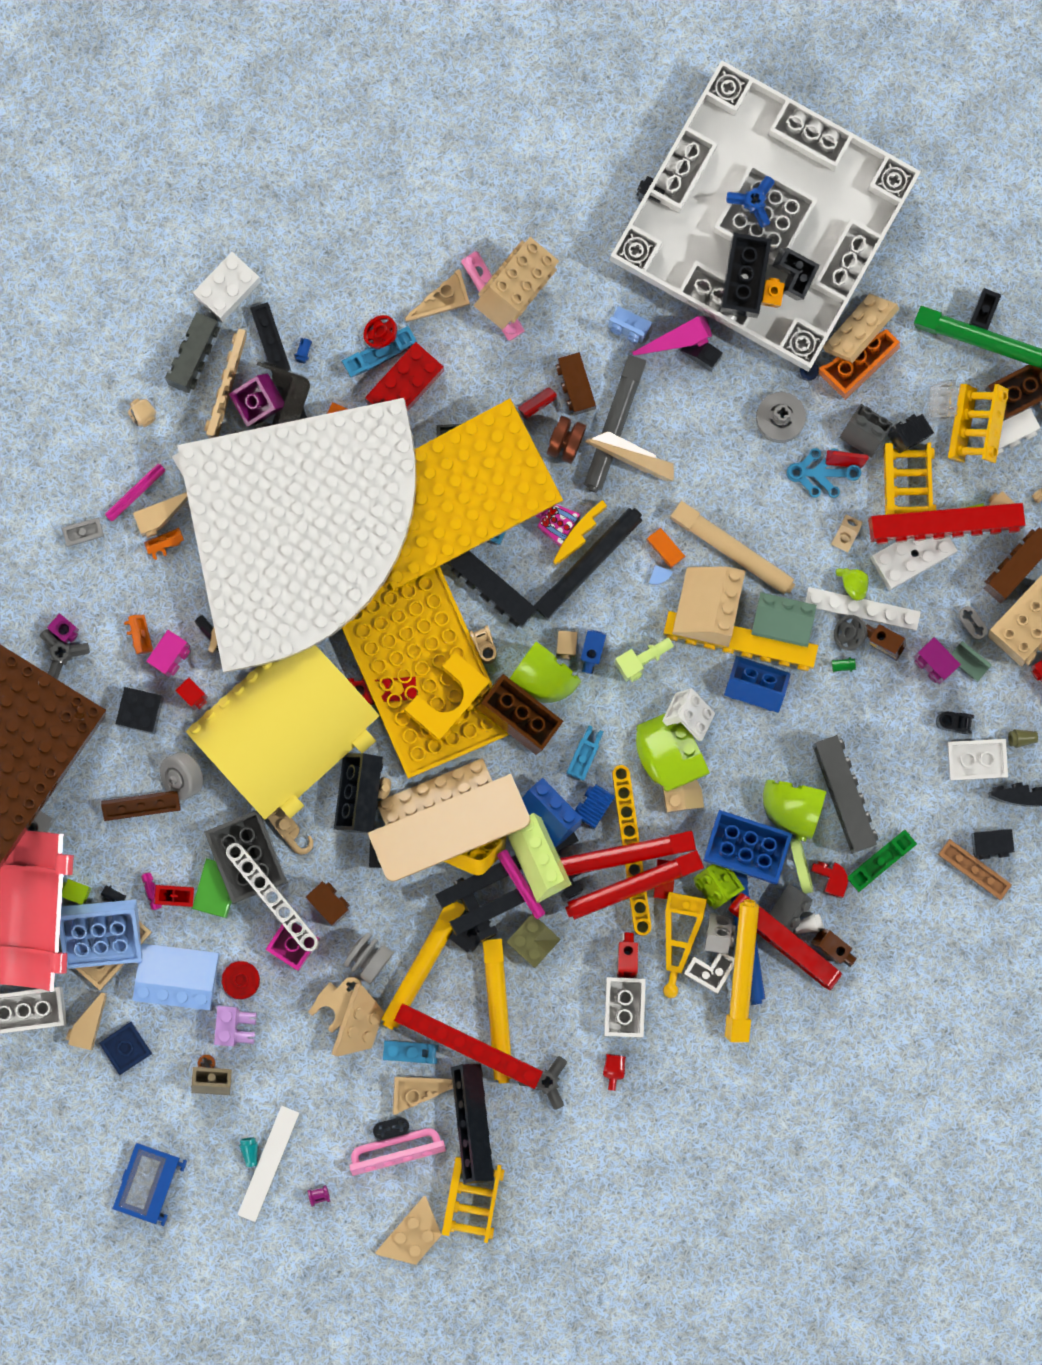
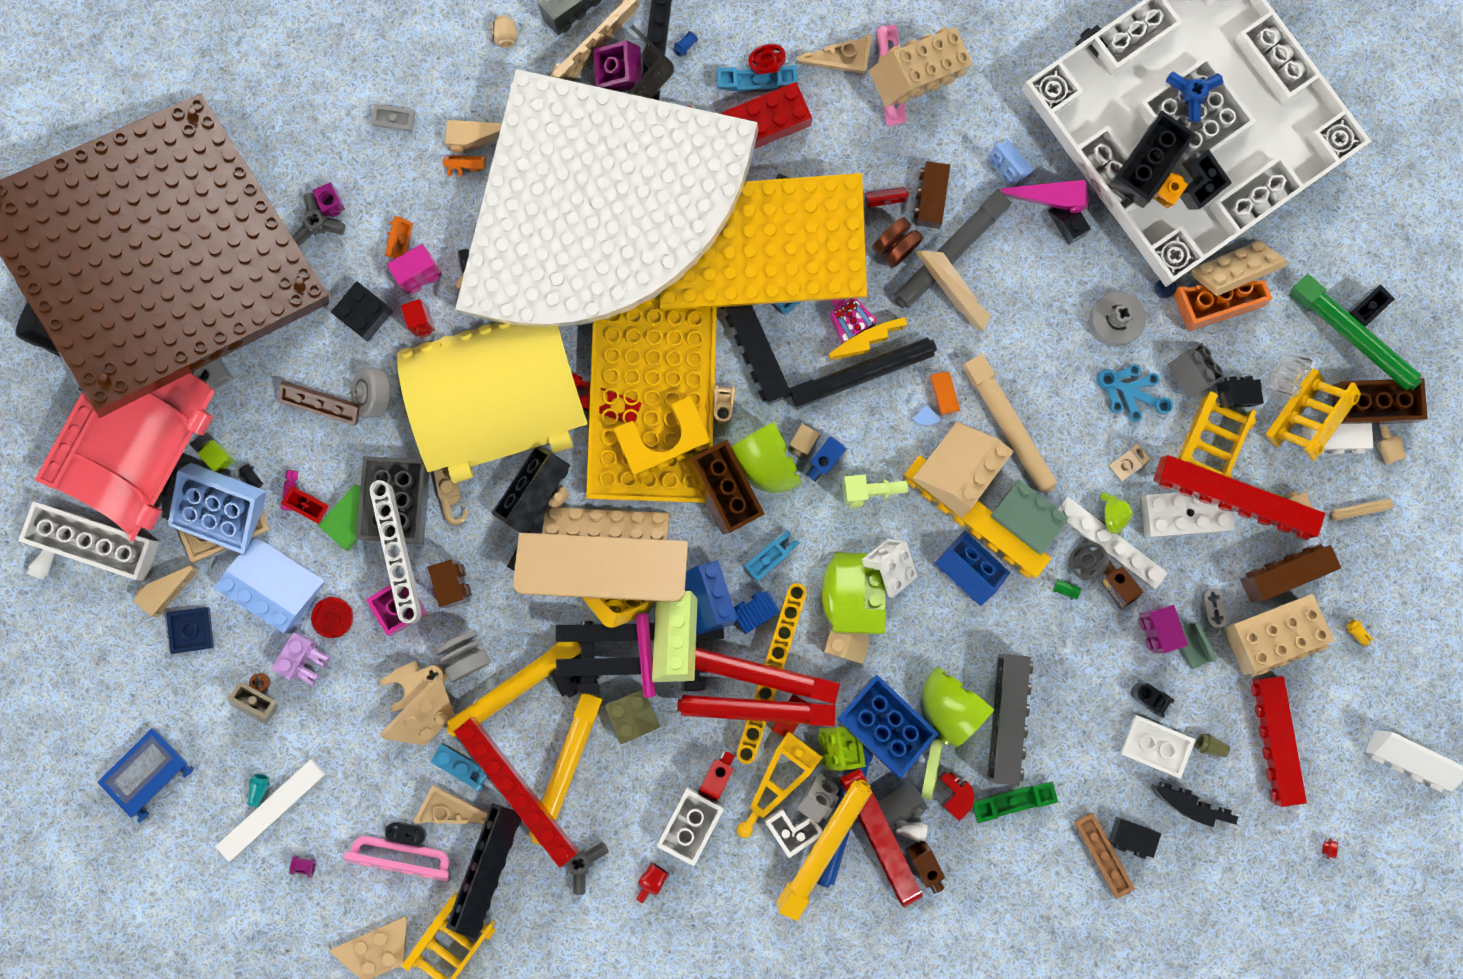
camera: 30 degrees right, 0 degrees up
(135, 492) = (461, 104): dark pink axle -> none
(845, 459) = (1163, 388): red slope -> none

